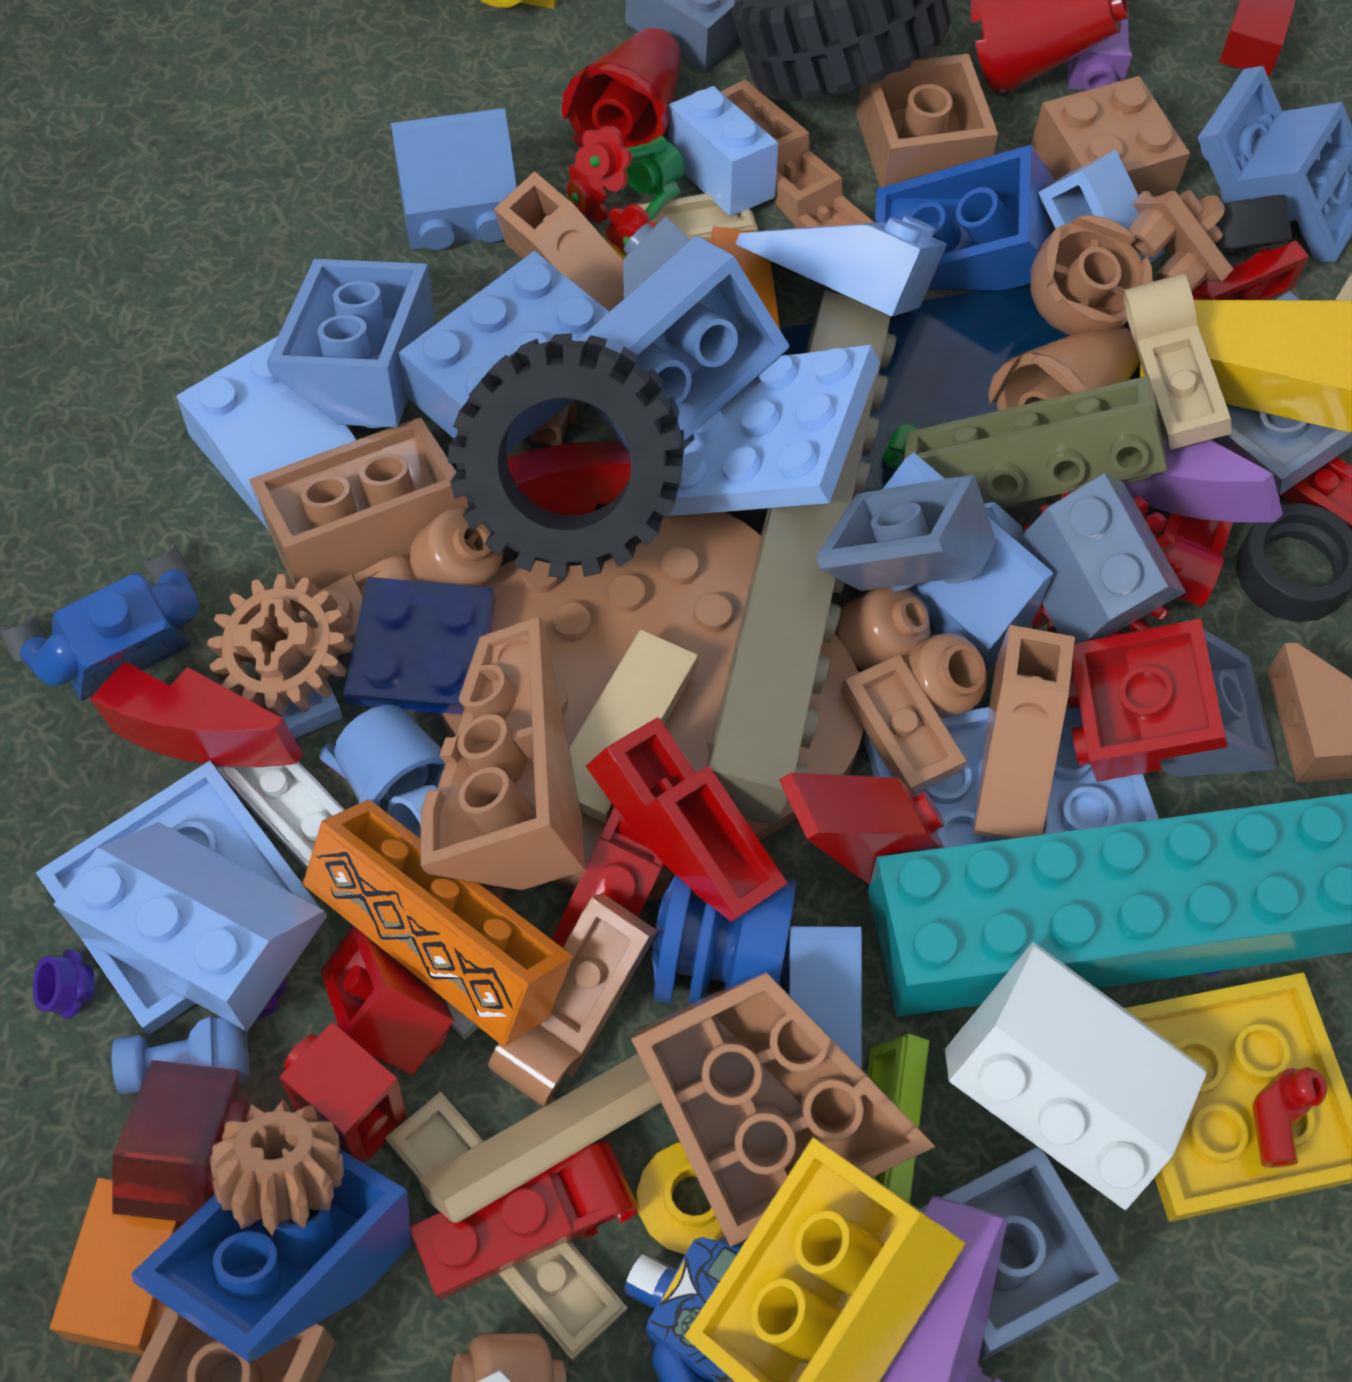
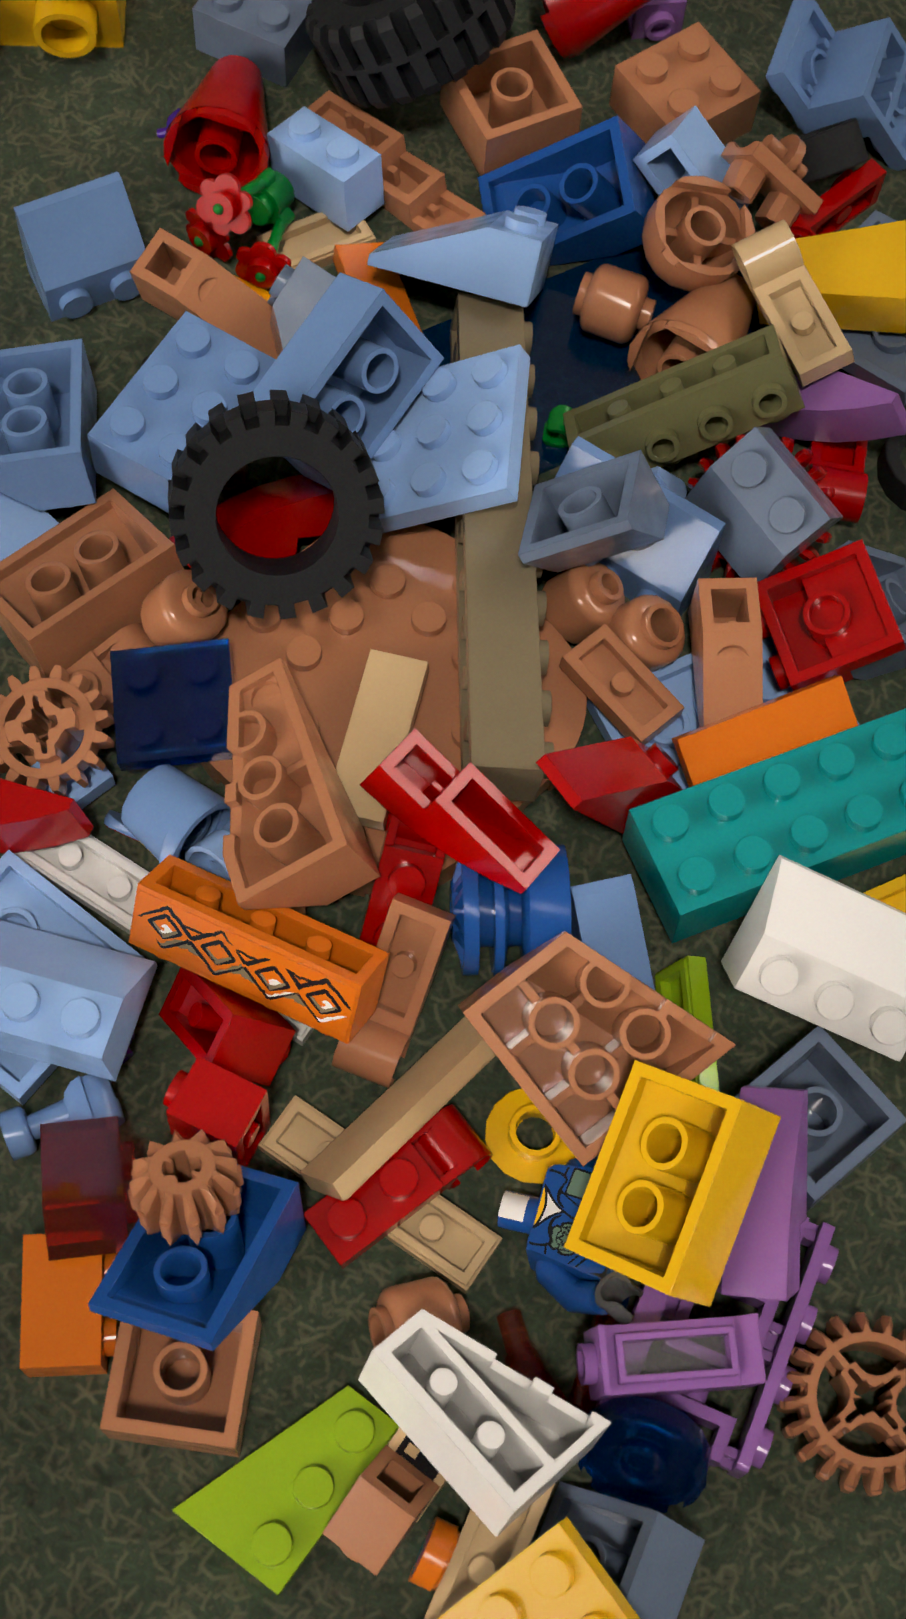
camera: 15 degrees left, 5 degrees up
(986, 332) = (613, 303): none -> nougat head
(1051, 803) = (765, 730): none -> orange tile

